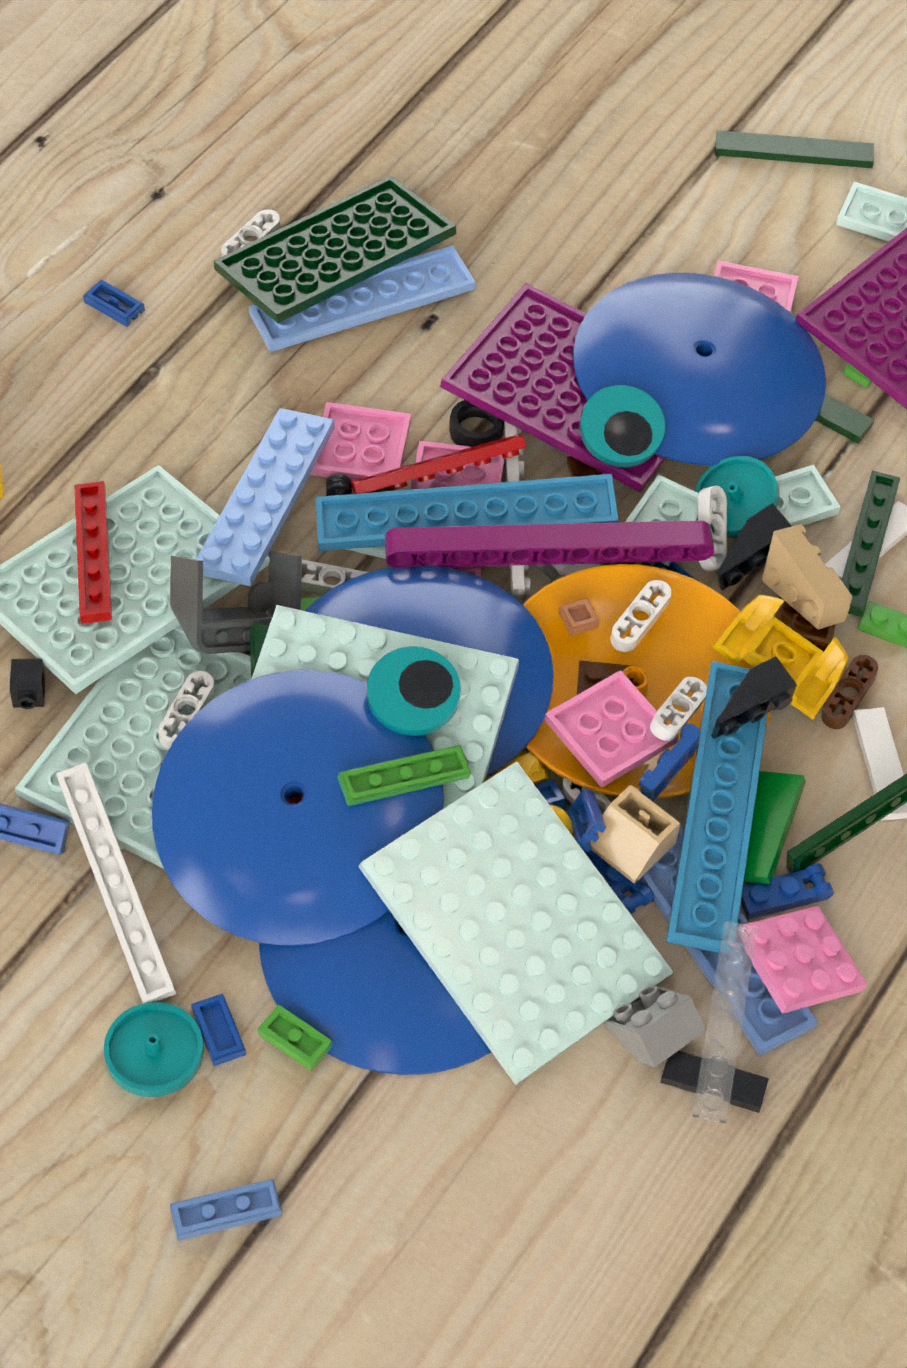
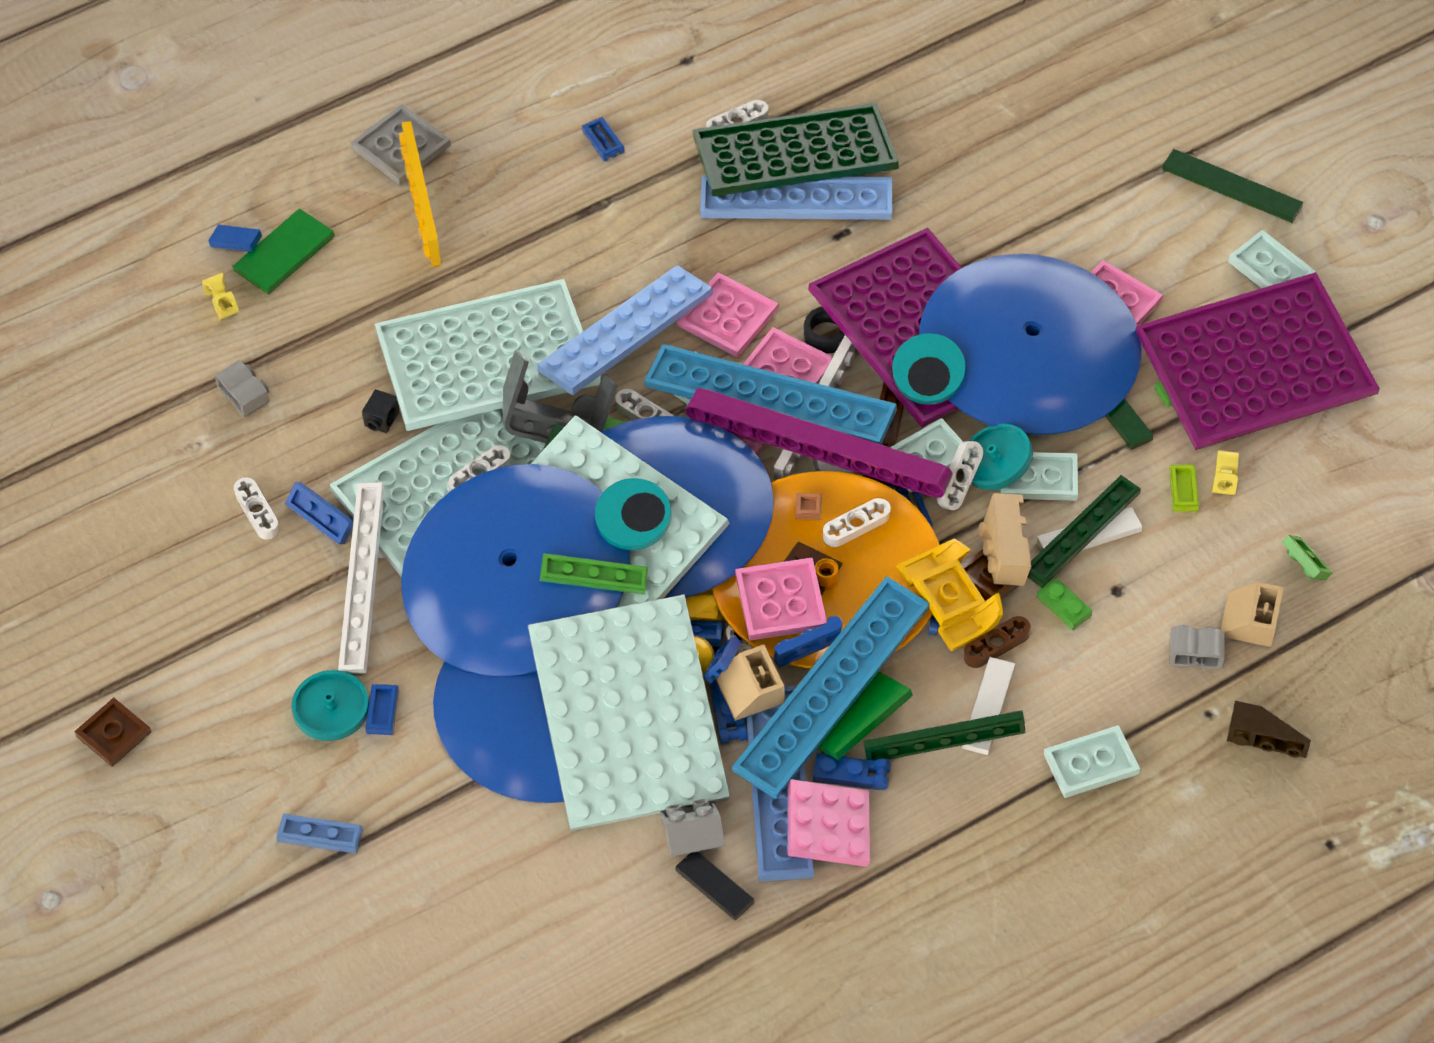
camera: 30 degrees right, 0 degrees up
(93, 553) = (474, 329): red plate -> none
(295, 1037) = (430, 735): bright green plate -> none
(338, 485) = (690, 342): black bush -> none
(450, 462) = (781, 352): red plate -> none
(680, 698) = (846, 594): white beam -> none
(725, 1022) = (740, 844): clear plate -> none
(751, 546) = (975, 502): black slope -> none
(761, 691) = (903, 612): black slope -> none

